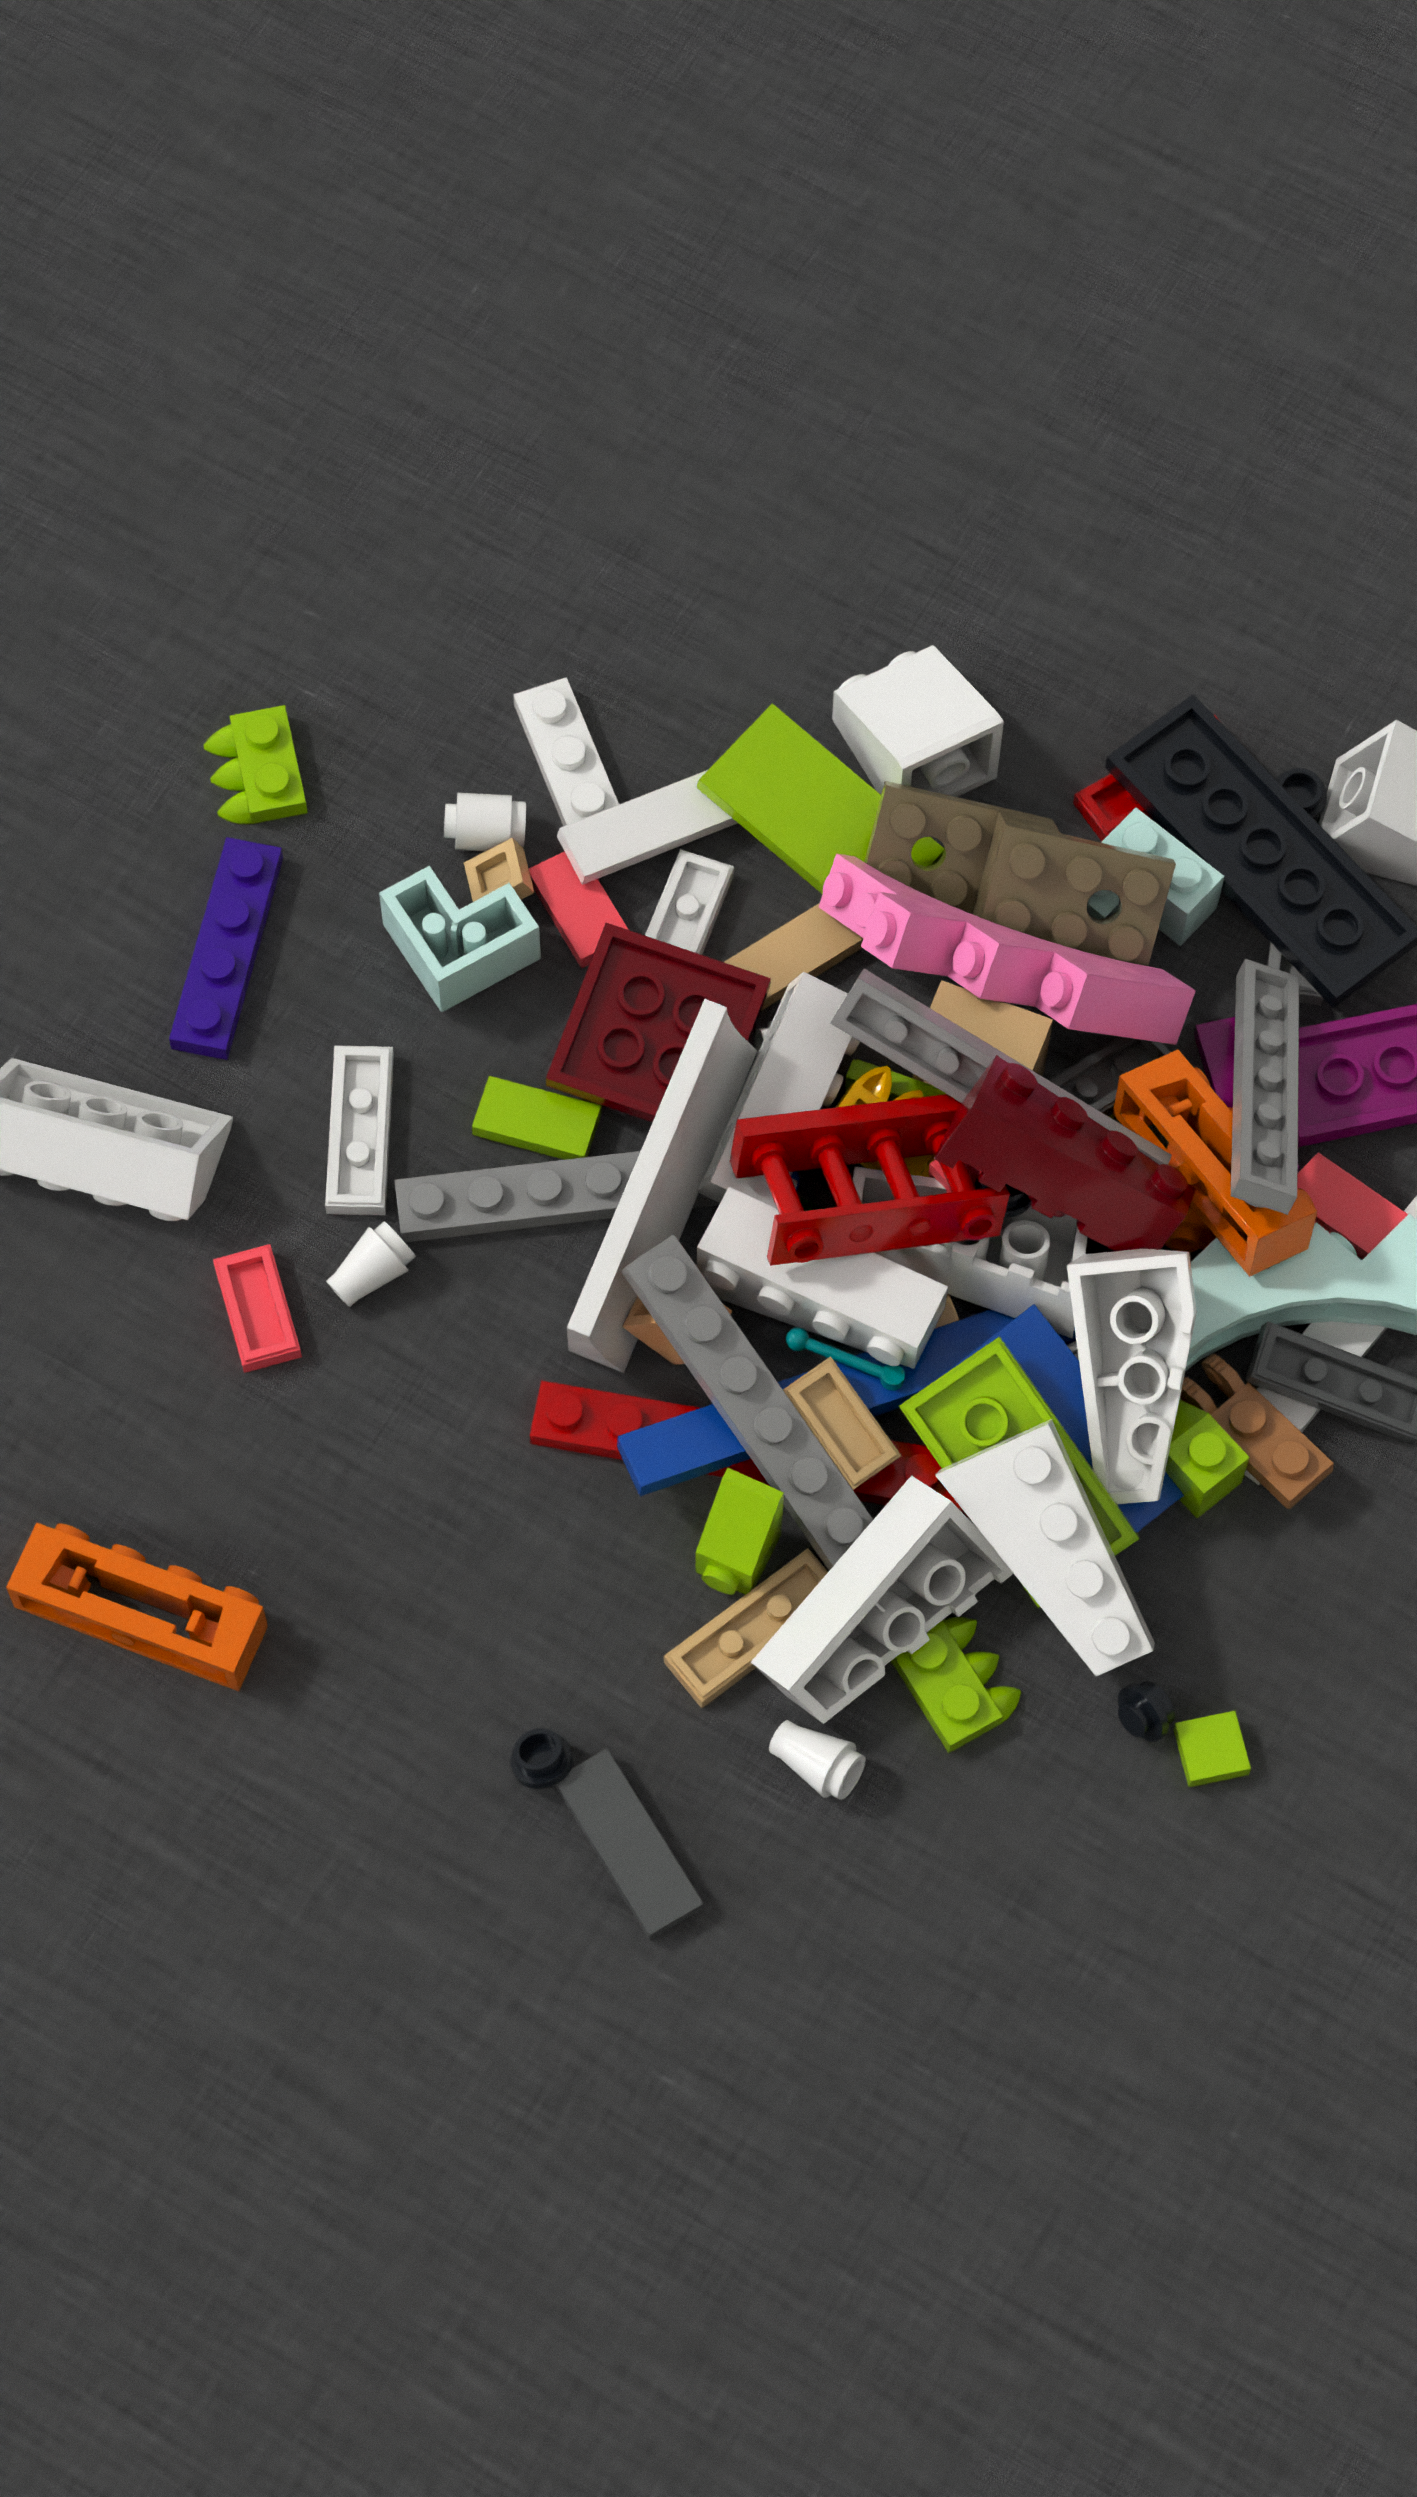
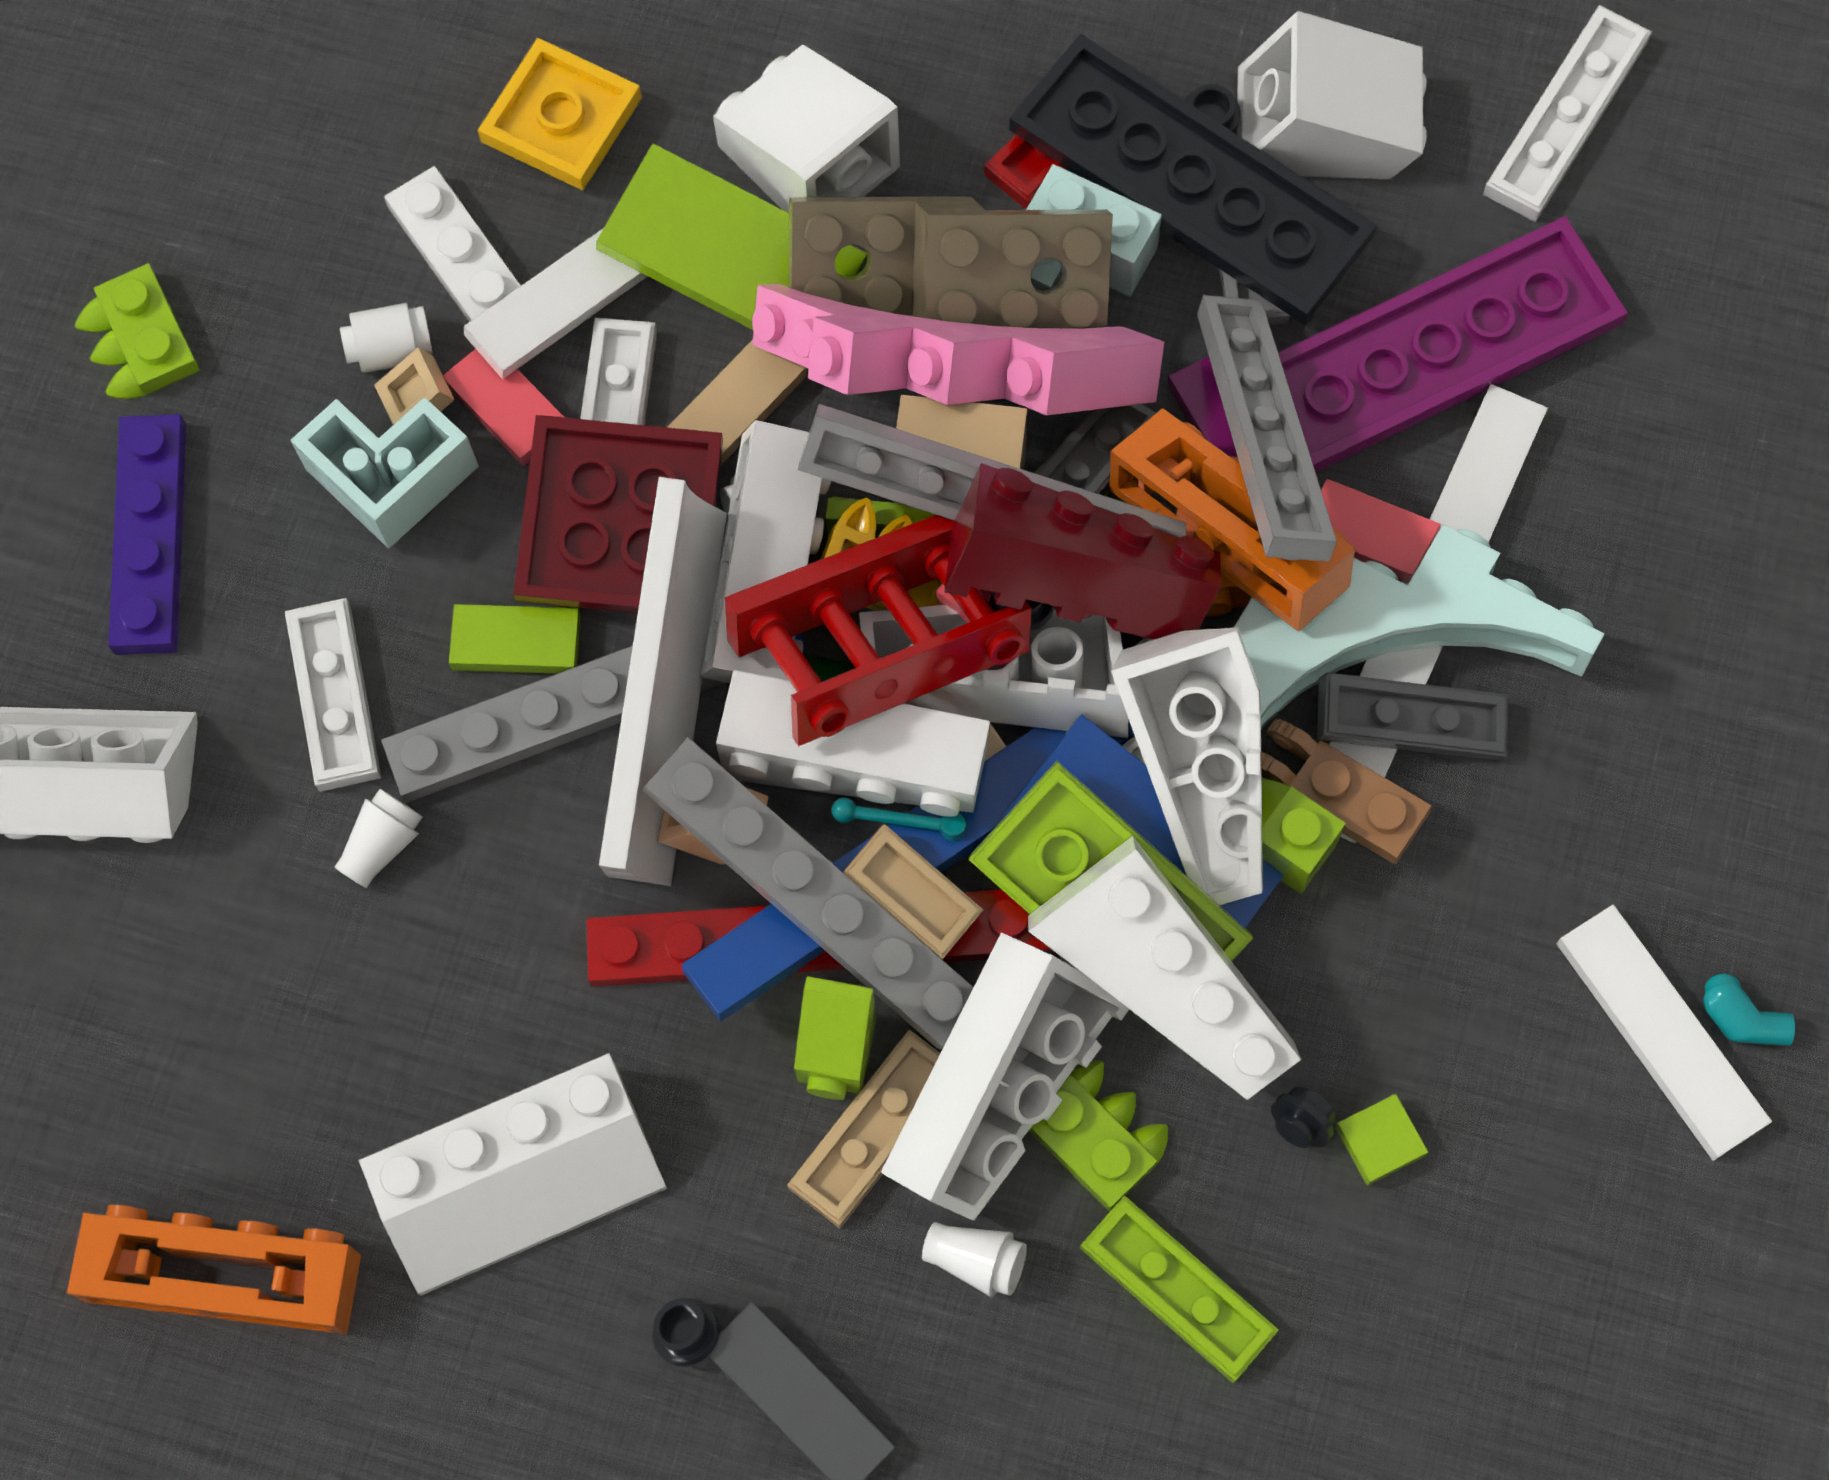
camera: 10 degrees left, 5 degrees up
(257, 1308) = (269, 912): coral tile -> none
(422, 1585) = (512, 1174): none -> white slope
(693, 656) = (560, 114): none -> yellow plate
(993, 1833) = (1178, 1289): none -> lime tile

